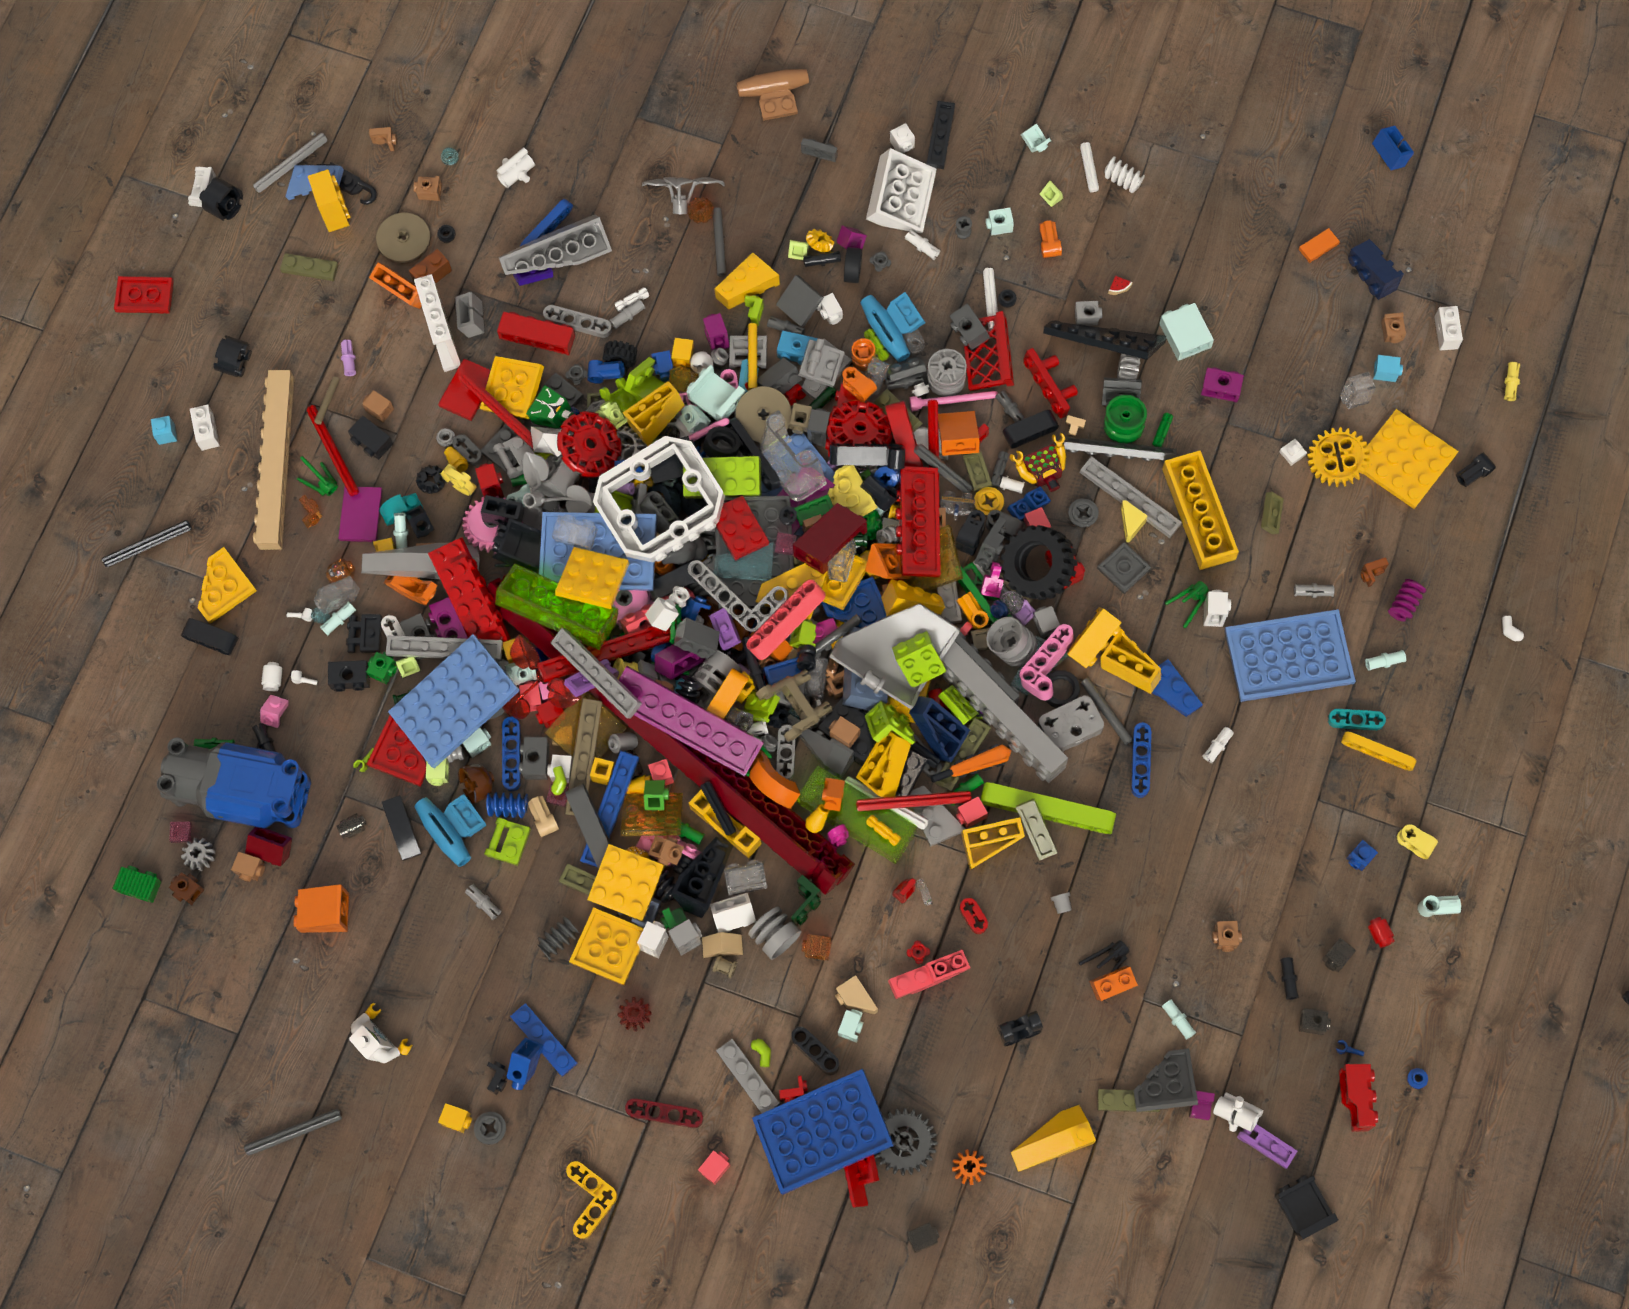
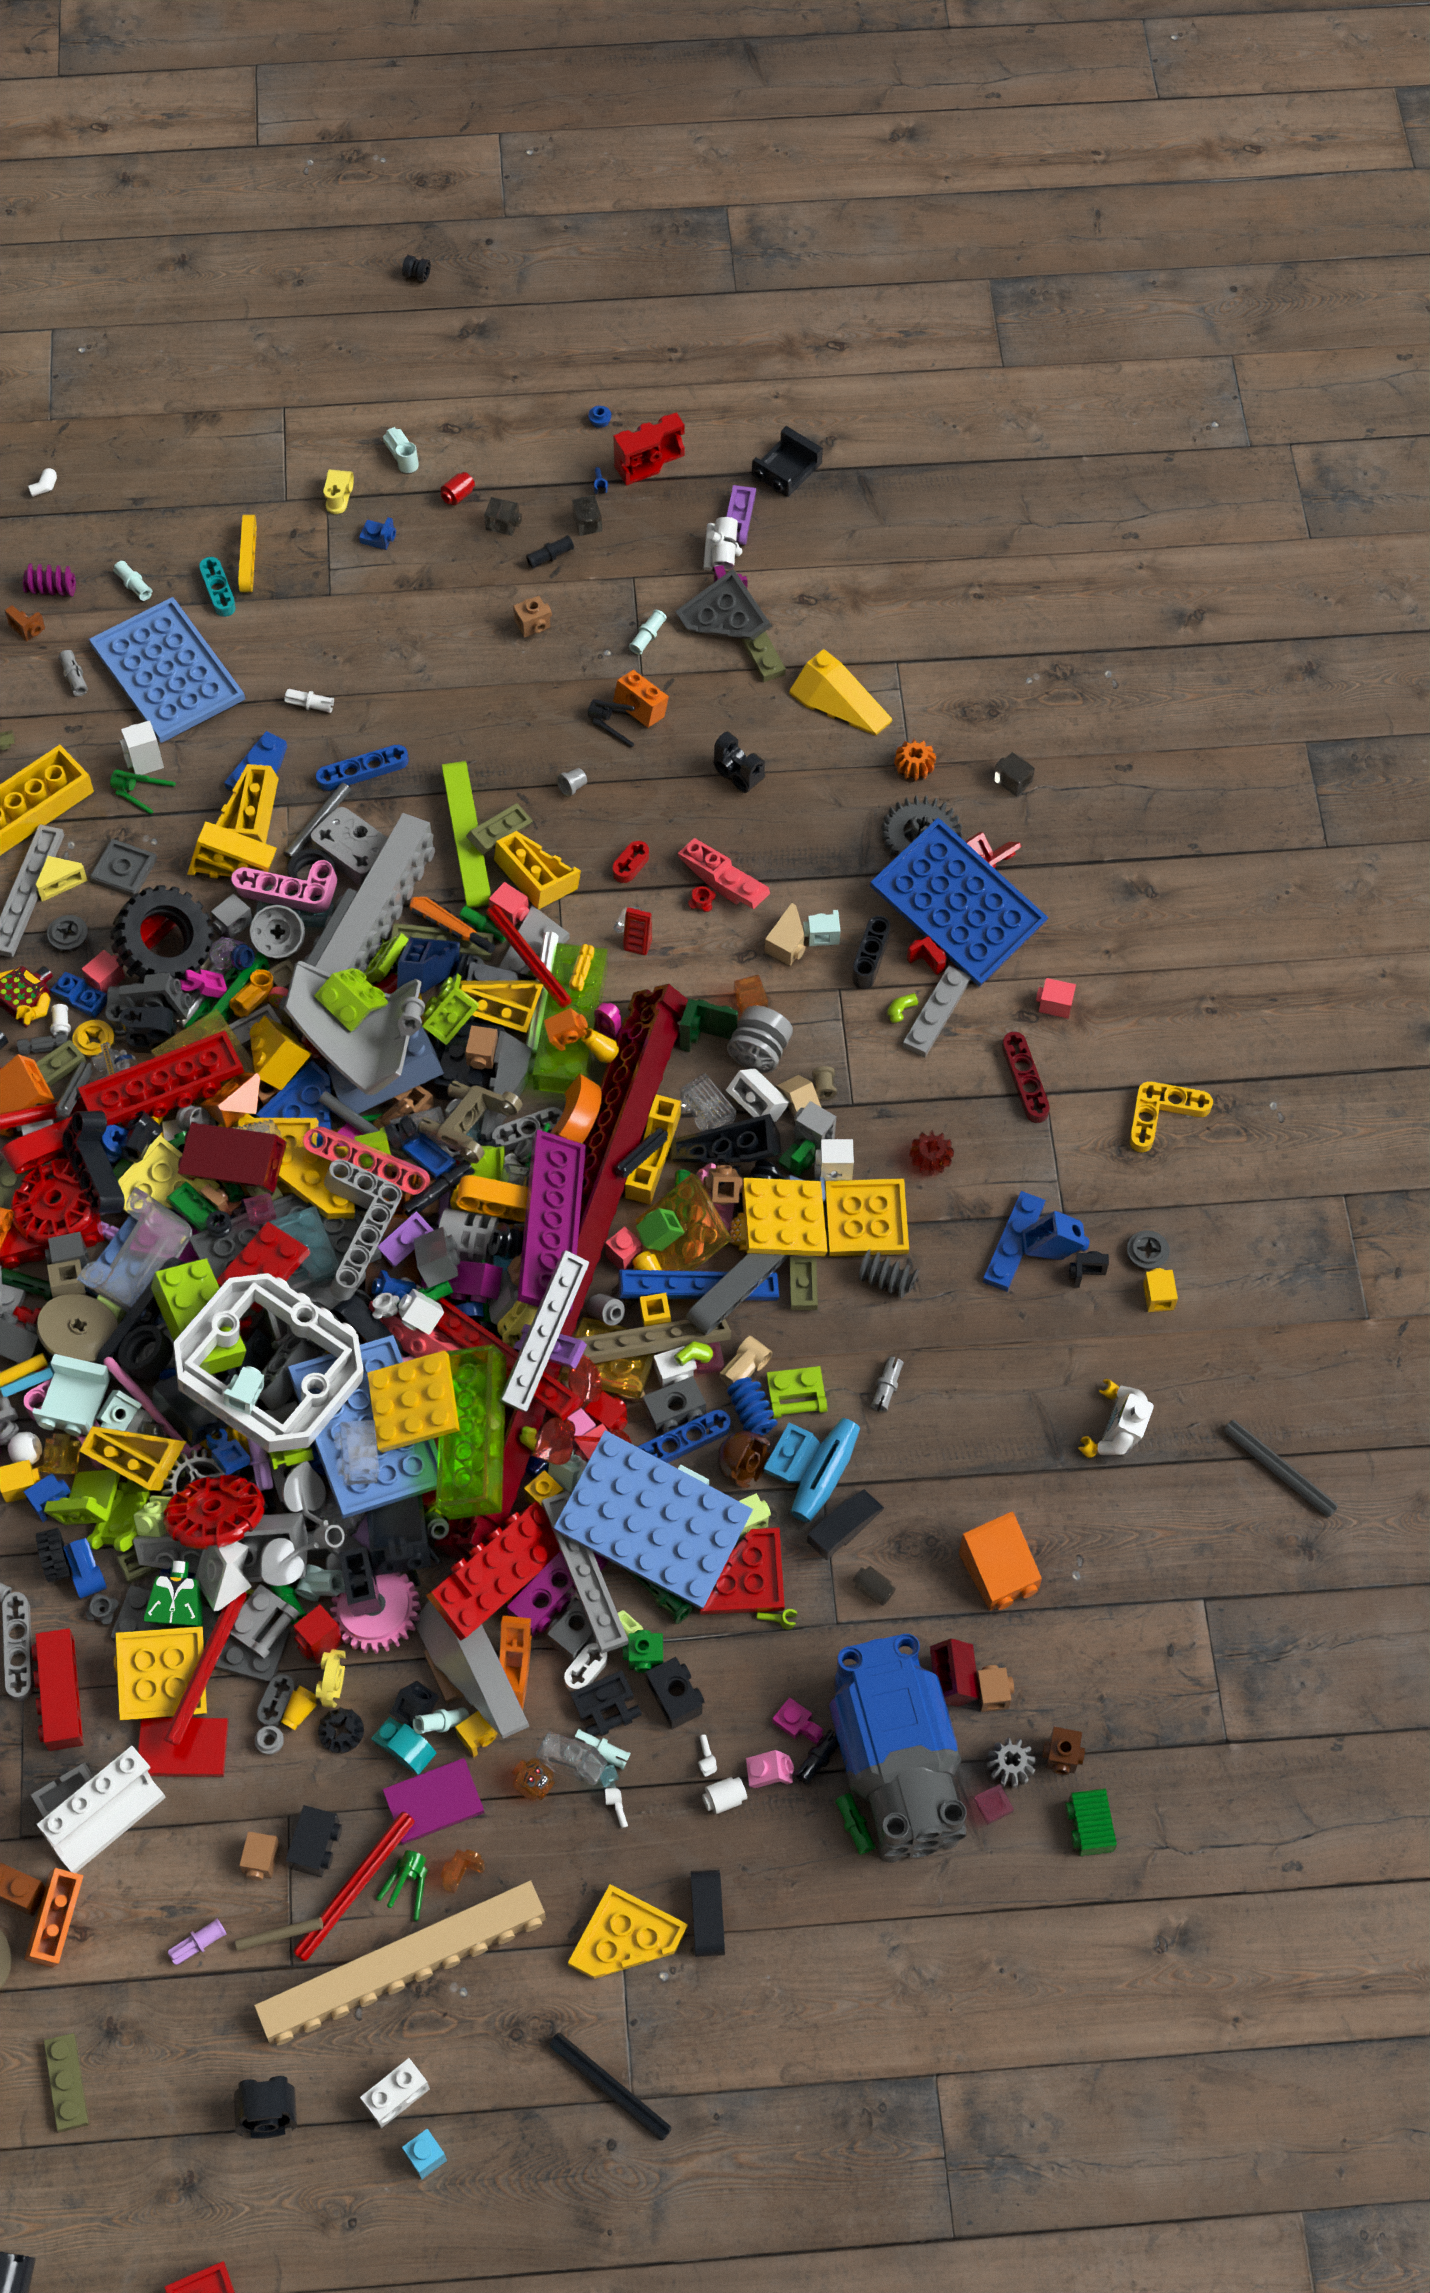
camera: 120 degrees left, 10 degrees down
(295, 740) = (795, 1720): none -> dark pink plate
(543, 648) = (528, 1437): none -> lime arm
(635, 470) = (244, 1390): none -> light aqua brick

